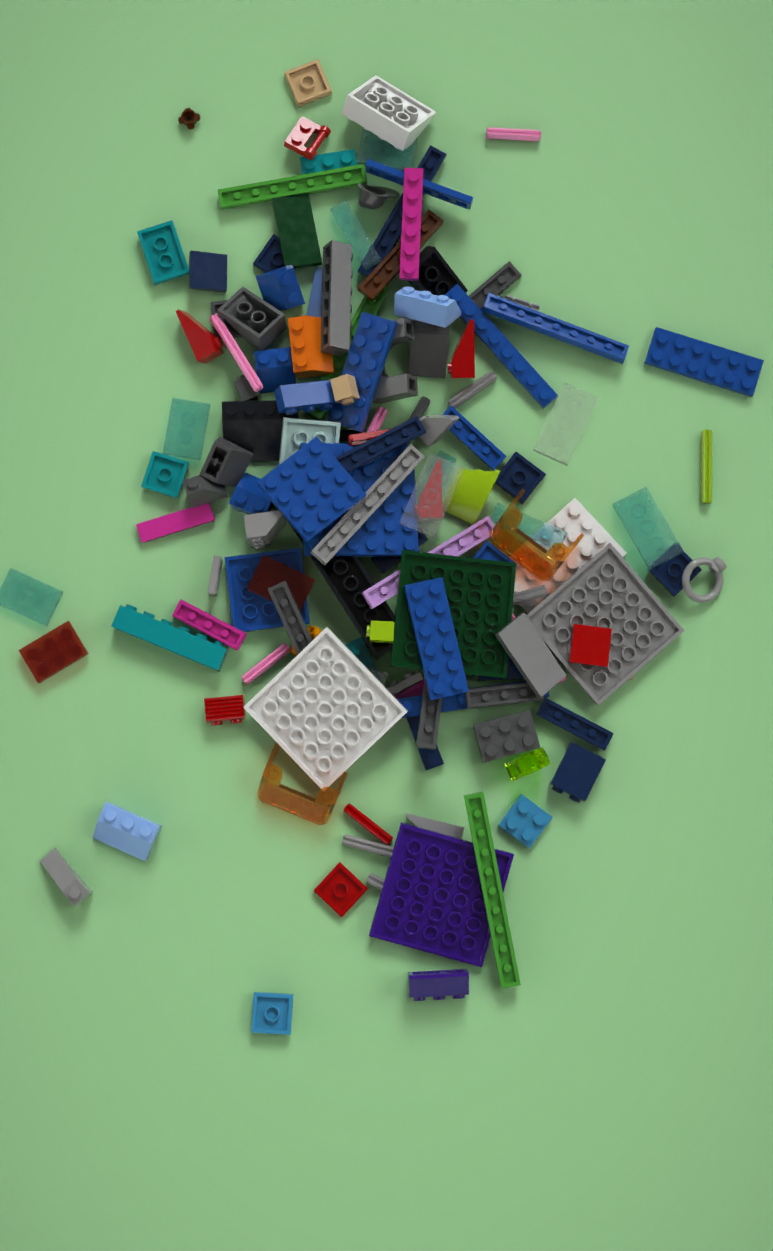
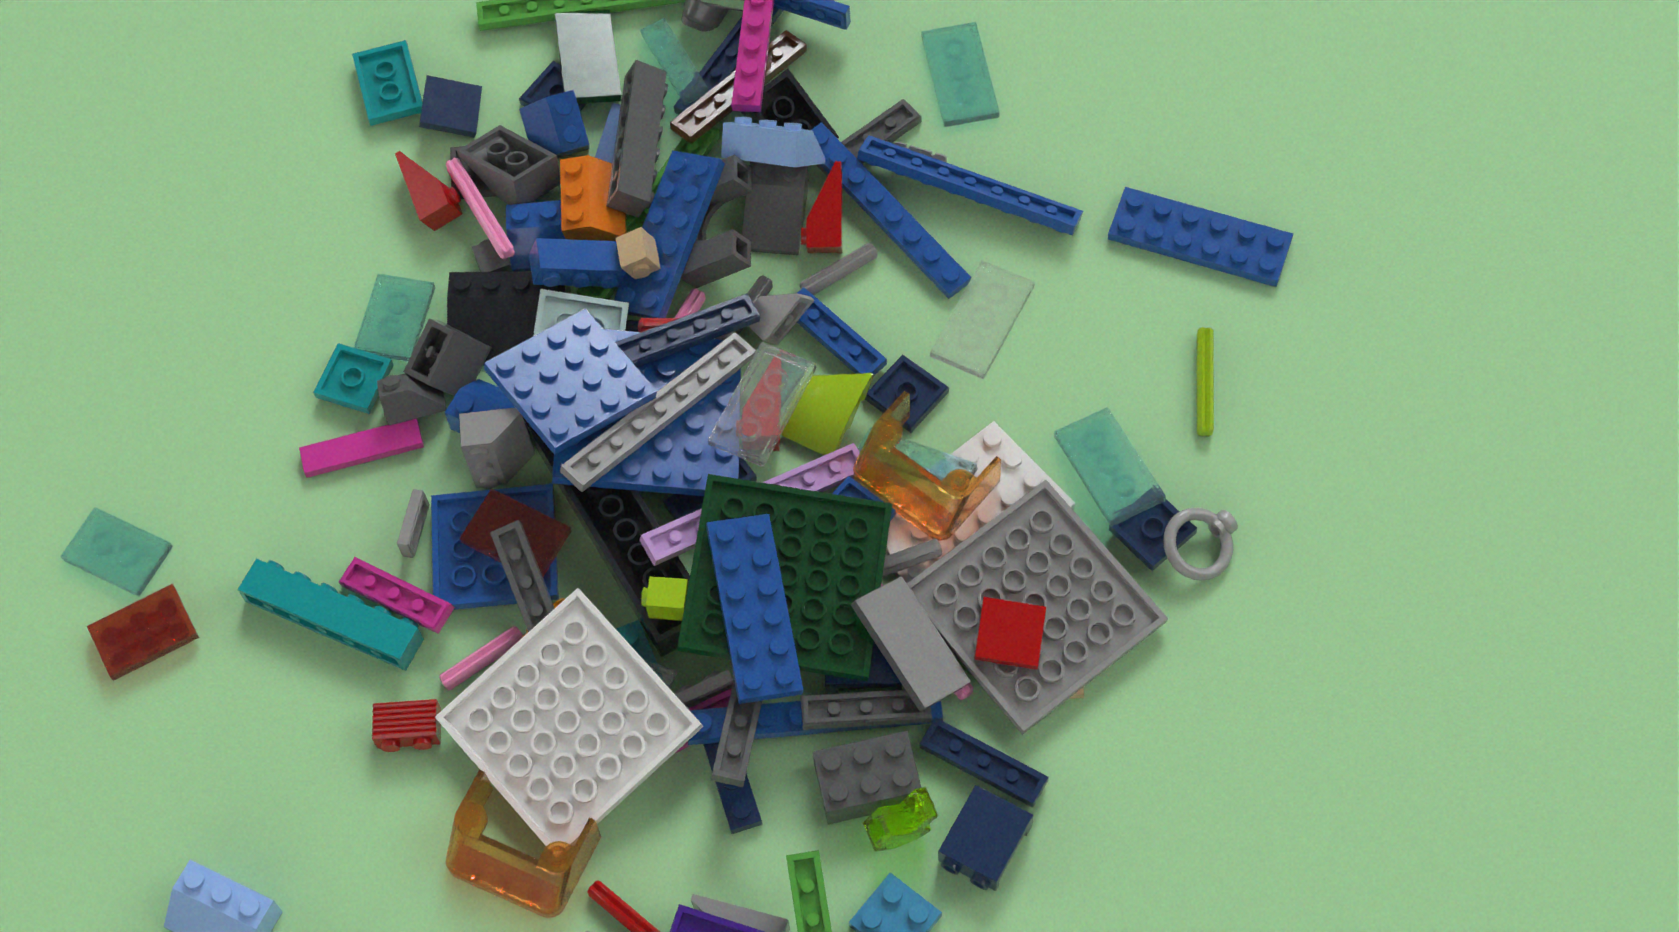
camera: 10 degrees right, 20 degrees down
(545, 240) = (960, 74): none -> clear light blue tile

